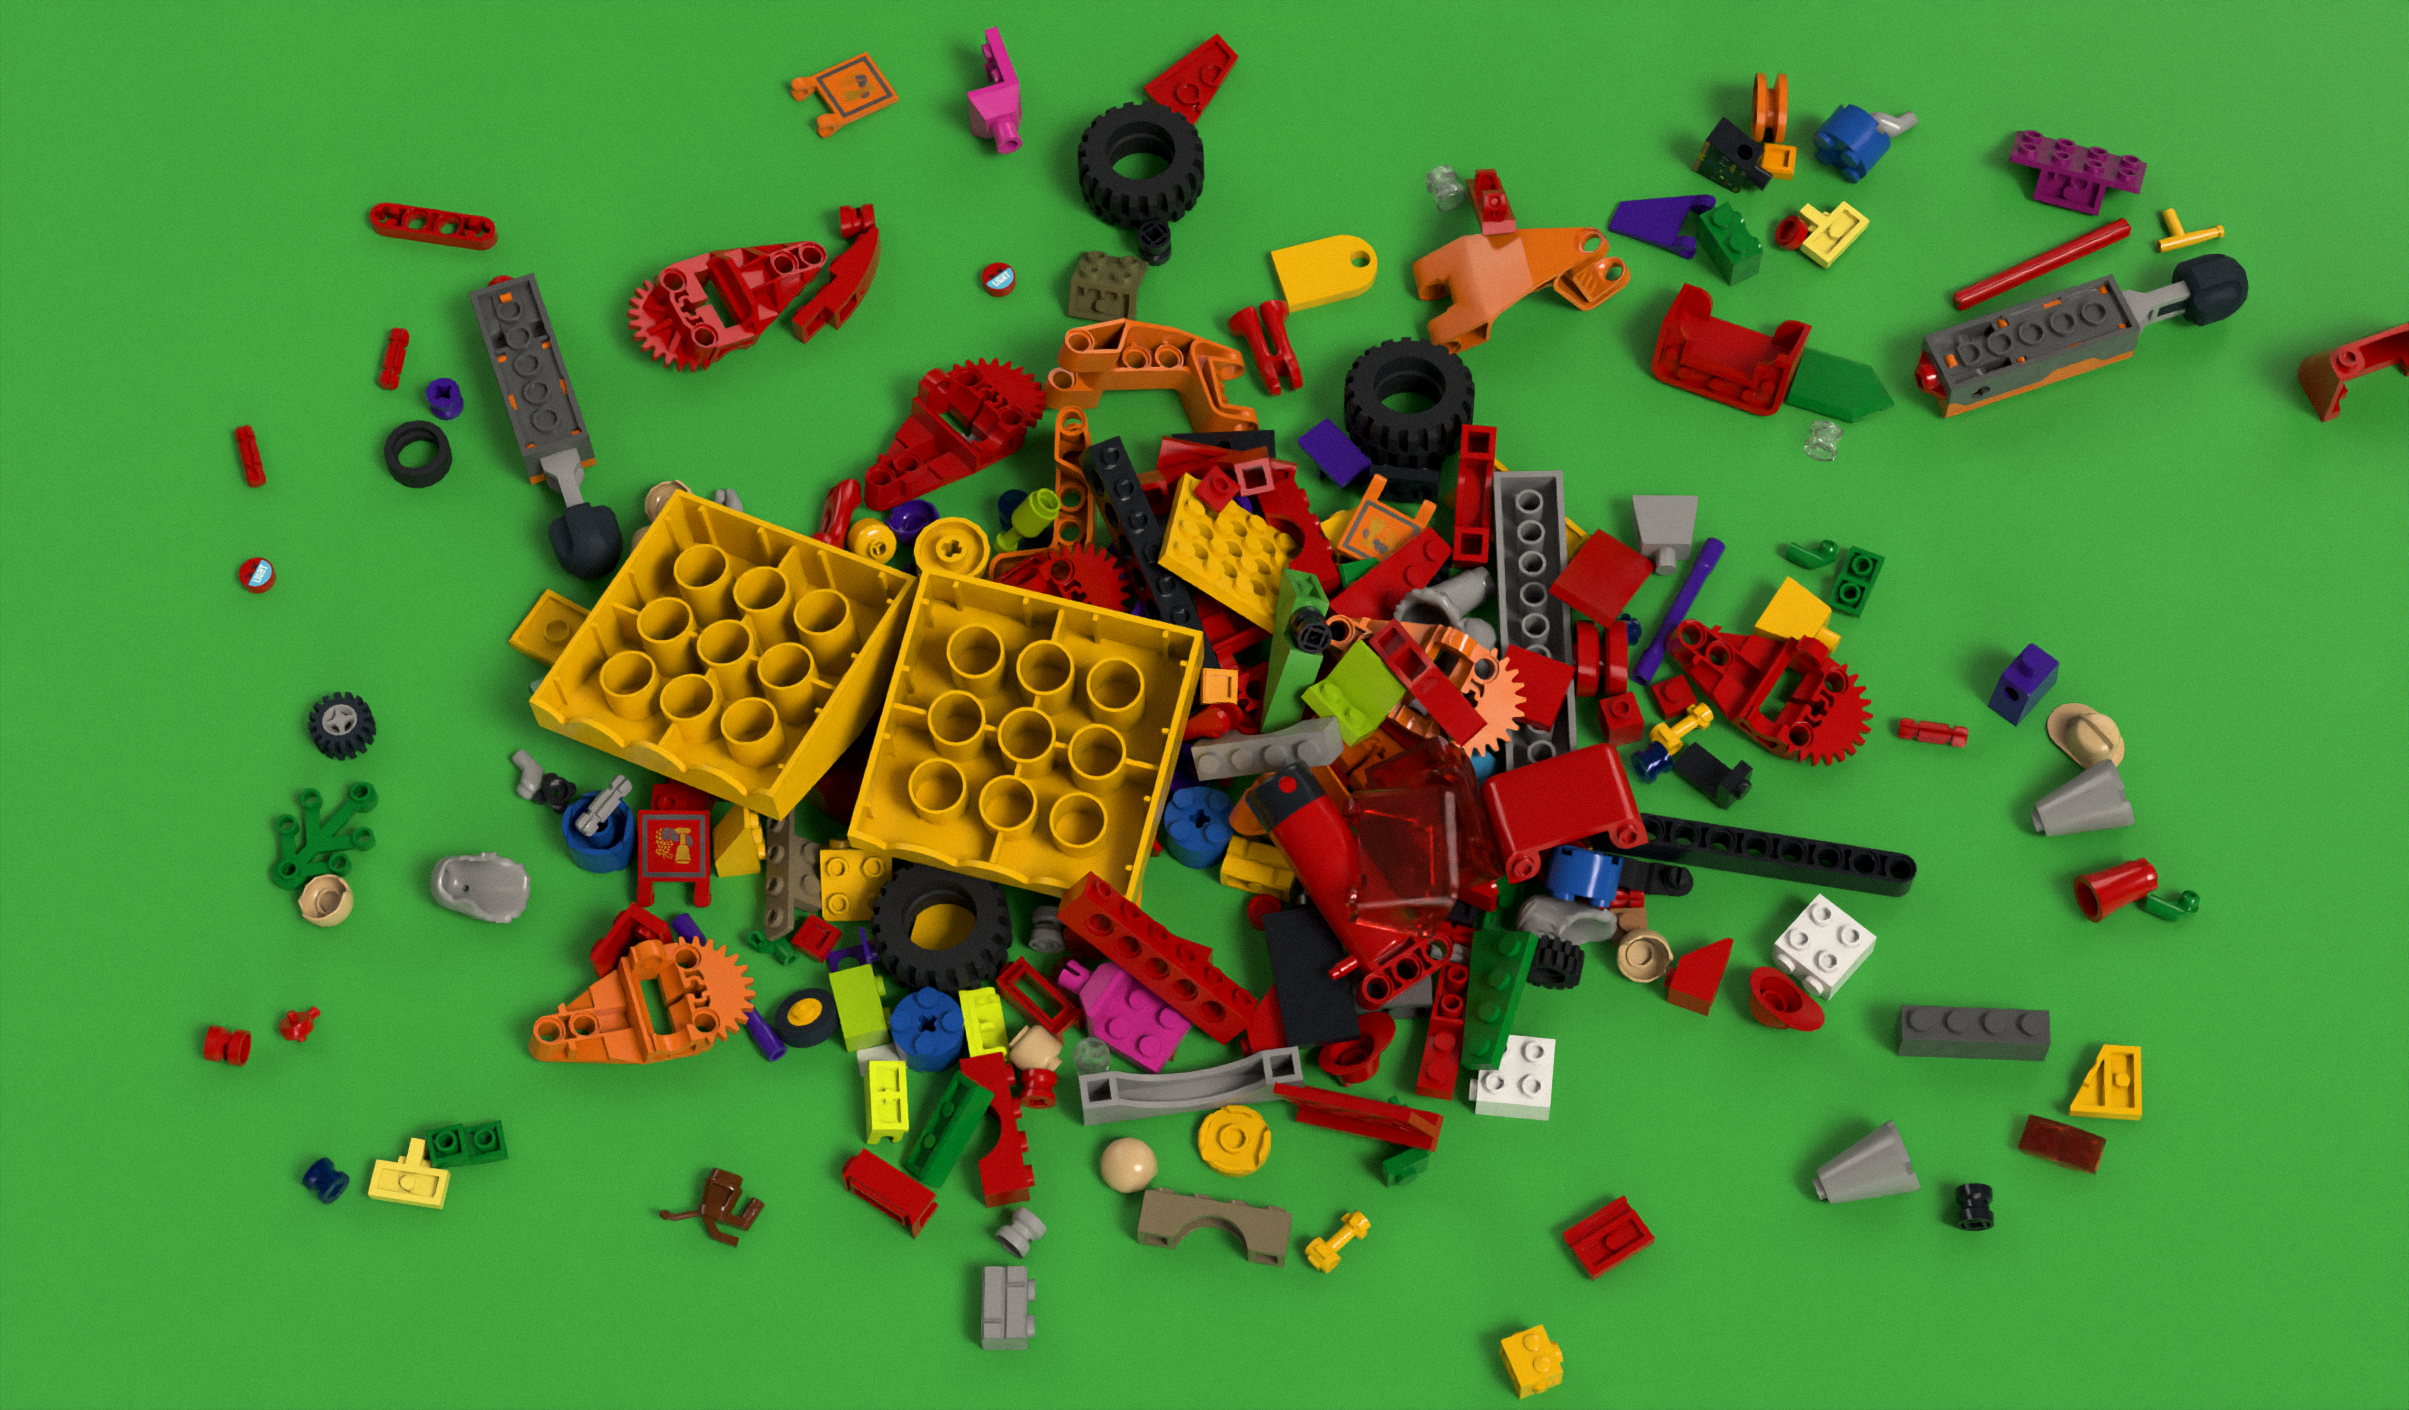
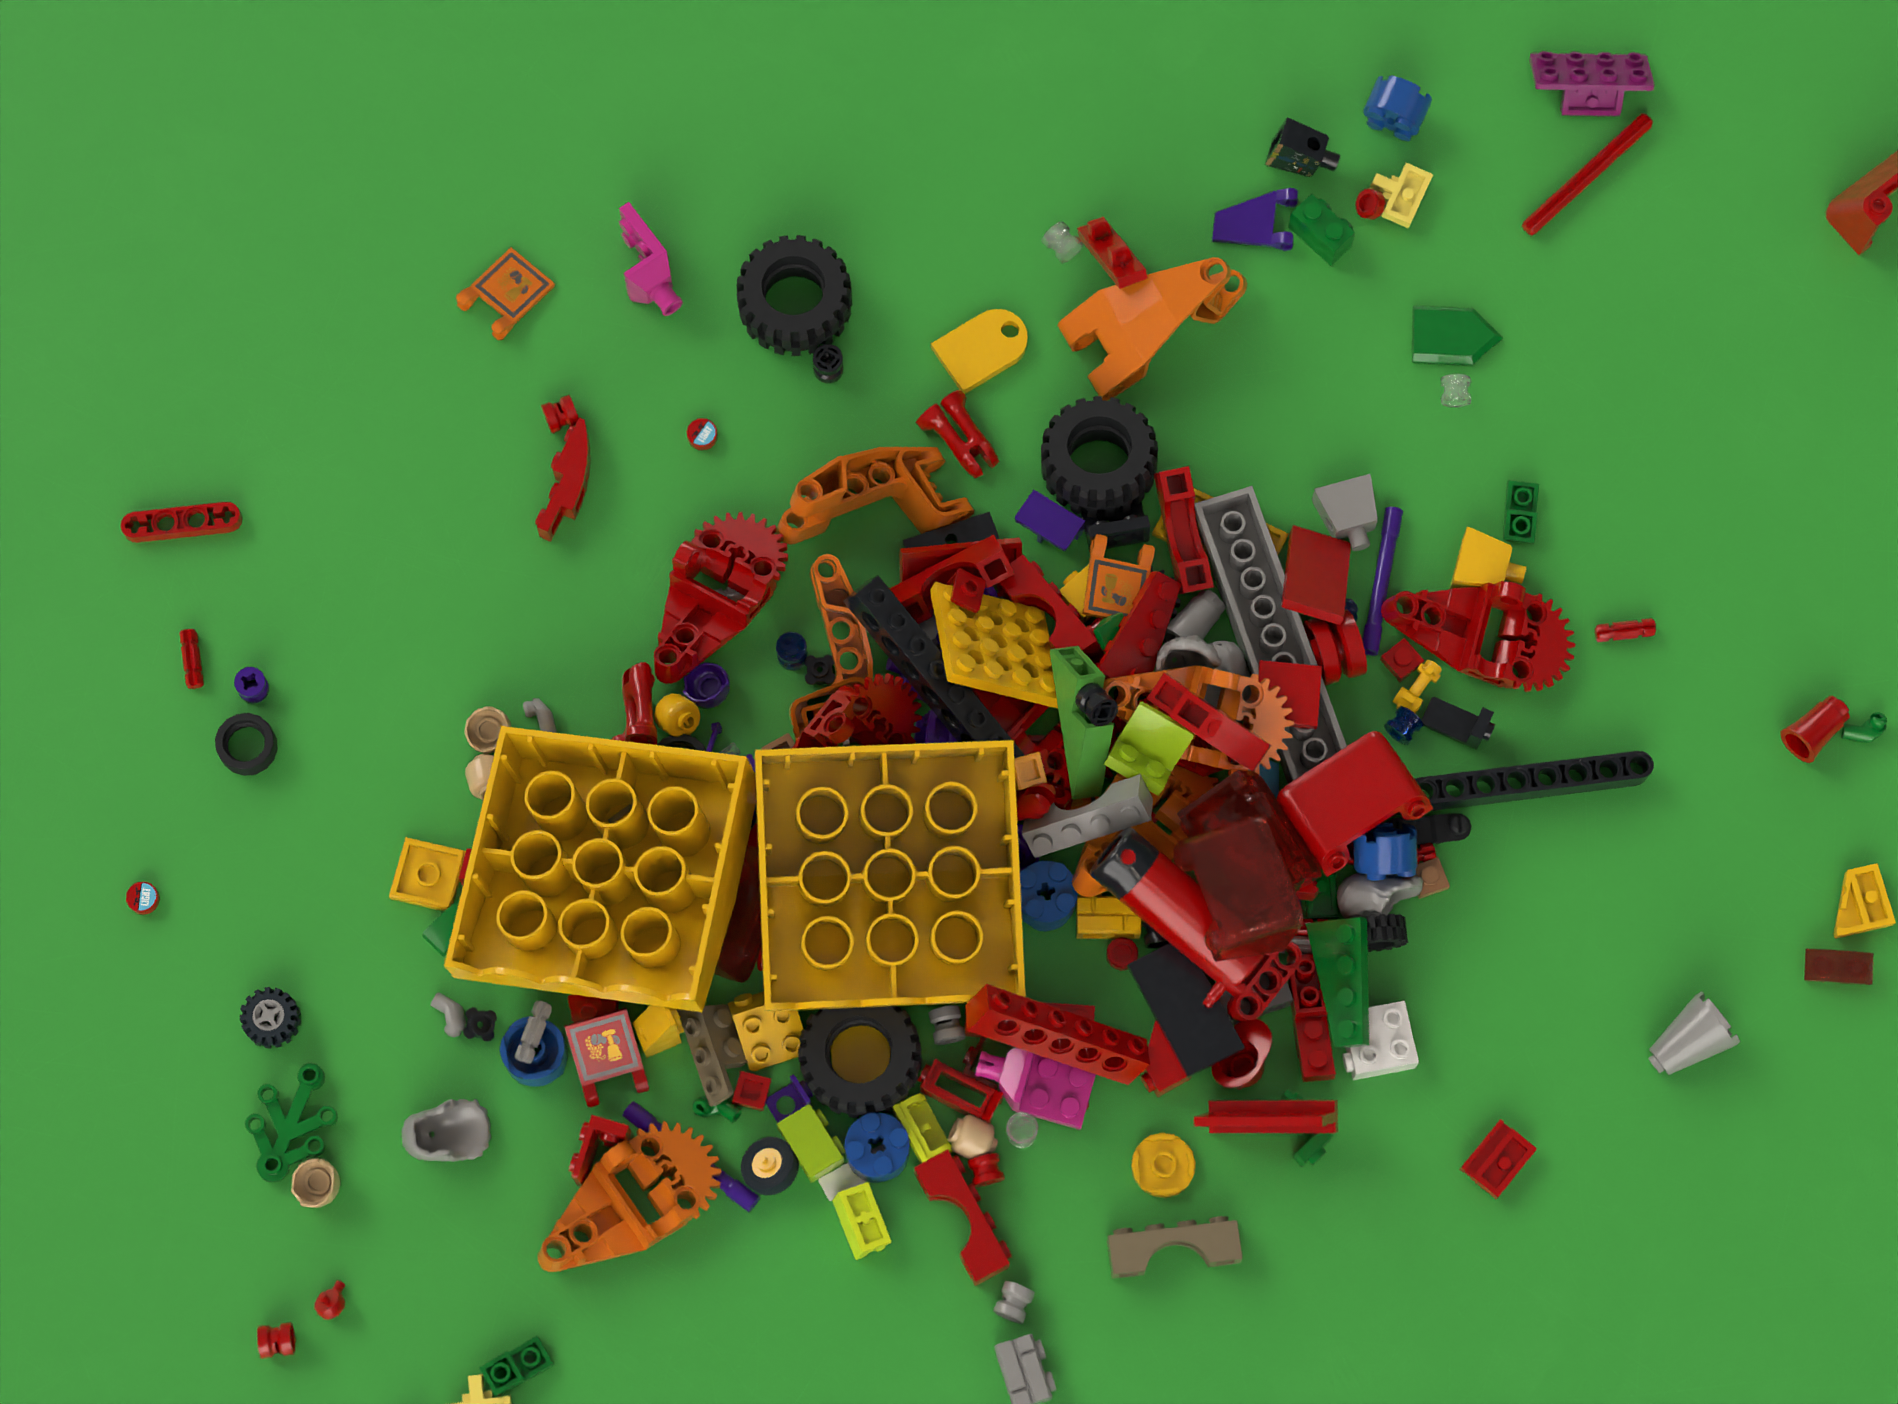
camera: 20 degrees left, 10 degrees up
(250, 456) = (95, 787): red axle -> none
(546, 419) = (351, 680): dark grey piece -> none
(718, 1199) = (748, 1349): reddish brown piece -> none
(751, 283) = (486, 506): red connector -> none
(889, 1190) = (890, 1298): red window -> none
(948, 1130) = (923, 1231): green slope -> none
(953, 546) = (751, 695): yellow wheel -> none
(1029, 519) = (810, 660): lime piece -> none
(1106, 287) = (800, 416): olive bracket -> none
(1128, 1165) = (1083, 1214): tan hair -> none
(1132, 1096) = (1097, 1141): light grey arch -> none
(1194, 79) = (810, 199): red wing -> none
(1324, 1254) = (1270, 1243): yellow bar -> none
(1531, 1361) = (1470, 1285): yellow head -> none
(1620, 719) = (1366, 695): red brick -> none
(1643, 955) = (1451, 902): tan hair -> none
(1698, 977) = (1502, 908): red slope -> none
(1725, 358) = (1353, 336): red windscreen -> none
(1769, 107) = (1319, 93): orange wheel -> none
(1779, 160) = (1339, 136): light orange tile -> none
(1782, 1004) = (1577, 911): red piece -> none
(1815, 558) = (1480, 499): green arm -> none
(1823, 948) = (1595, 851): white brick -> none
(1892, 125) = (1424, 78): light grey arm -> none
(1973, 1033) = (1739, 891): dark grey brick -> none
(1974, 1207) = (1786, 1045): black wheel -> none
(2031, 677) = (1692, 564): dark purple torso -> none
(2067, 333) = (1632, 236): dark grey piece -> none
(2085, 734) = (1750, 597): tan piece -> none
(2085, 804) = (1771, 661): light grey cone -> none
(2181, 239) = (1696, 118): yellow piece -> none

